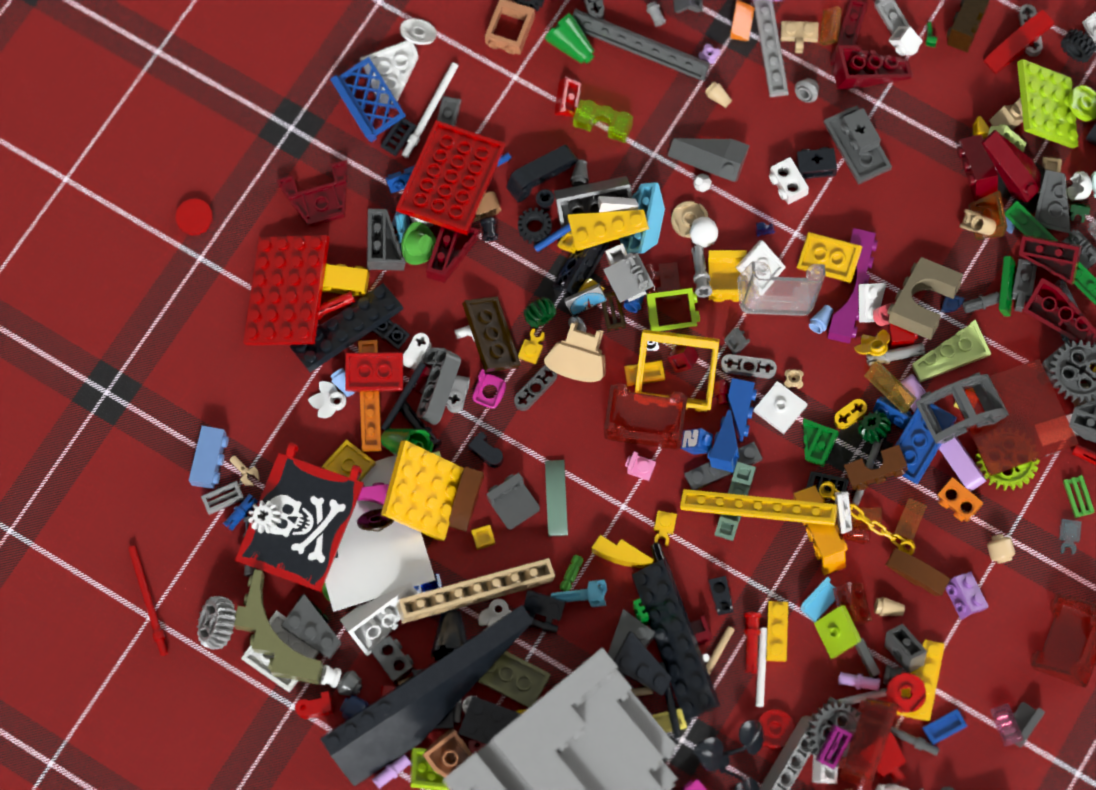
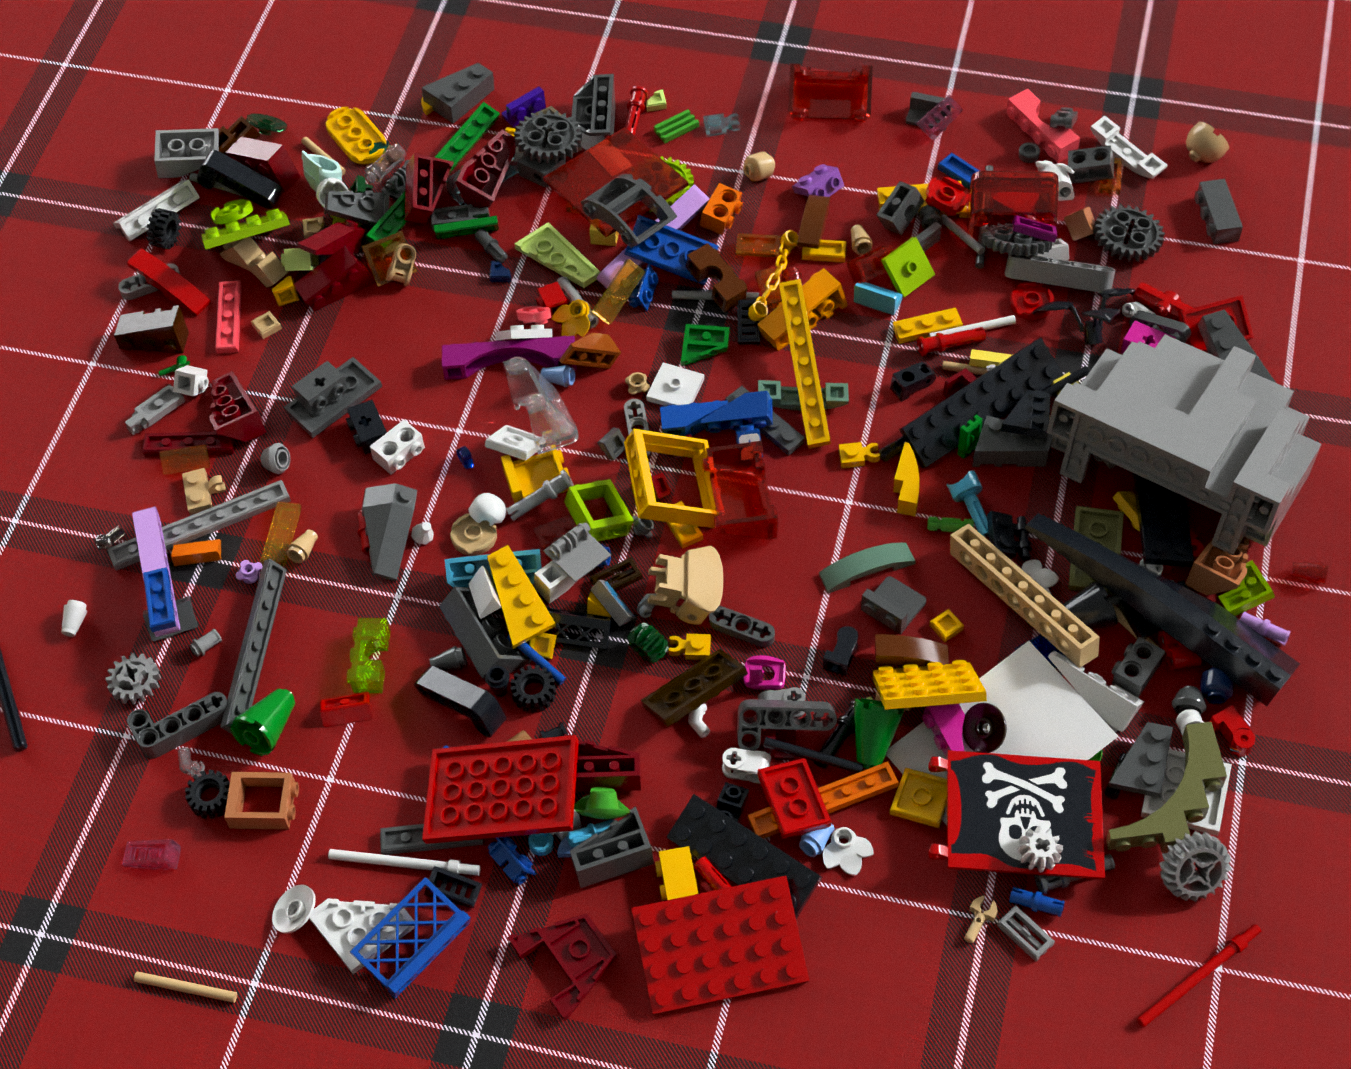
camera: 110 degrees left, 15 degrees down
(208, 457) = (983, 965): medium blue brick -> none
(640, 466) = (797, 495): bright pink bracket -> none
(721, 666) = (985, 358): none -> light yellow tile
(738, 83) = (281, 532): none -> clear yellow tile
(830, 349) = (592, 351): none -> dark orange slope
(837, 255) = (483, 382): yellow tile -> none
(843, 512) = (770, 290): white slope -> none
(853, 417) = (659, 325): yellow beam -> none
(859, 681) = (949, 242): lavender pin -> none
(874, 427) = (669, 302): dark green gear -> none
(886, 580) = (828, 251): none -> yellow tile
(924, 276) = (527, 293): dark tan arch -> none
(953, 110) = (266, 325): none -> tan tile
(972, 84) = (228, 317): none -> coral tile

